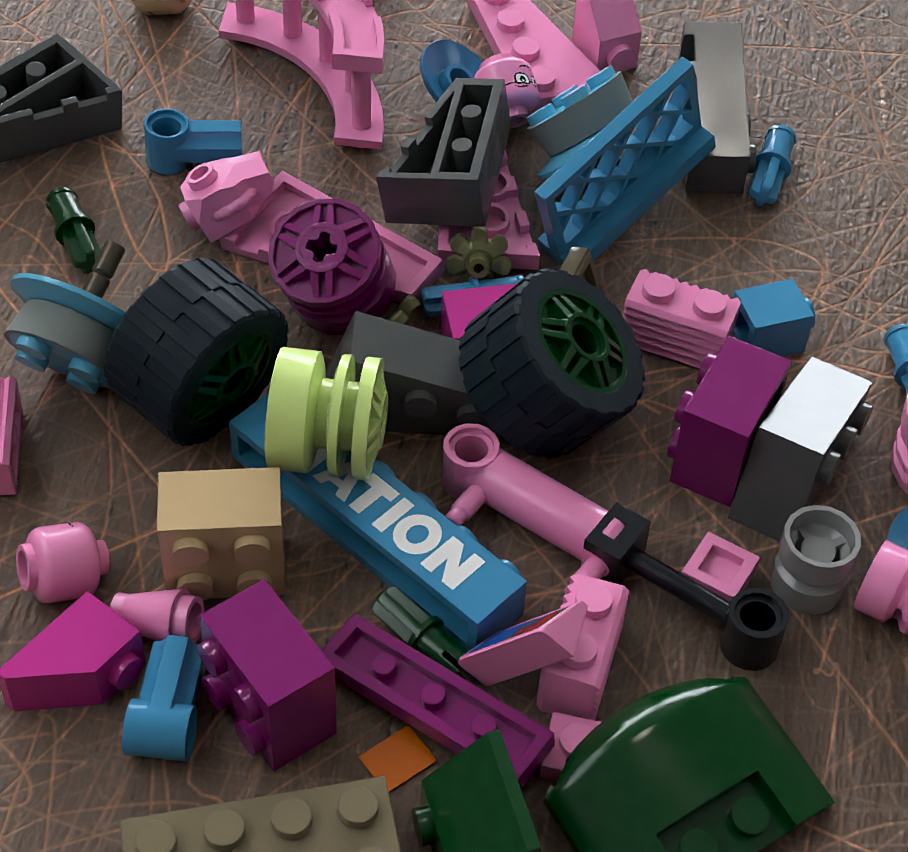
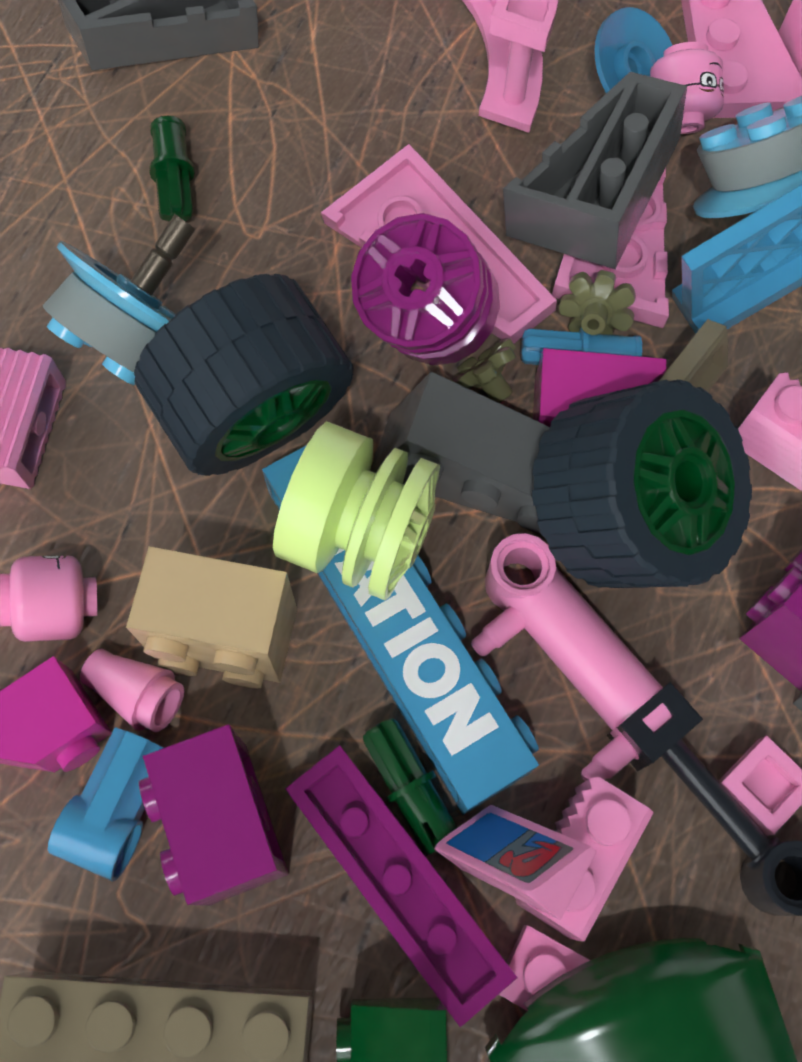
camera: 15 degrees right, 20 degrees up
(176, 141) = (310, 83): dark azure piece -> none
(225, 193) = (337, 163): bright pink hand -> none
(398, 757) = (344, 927): orange sticker -> none

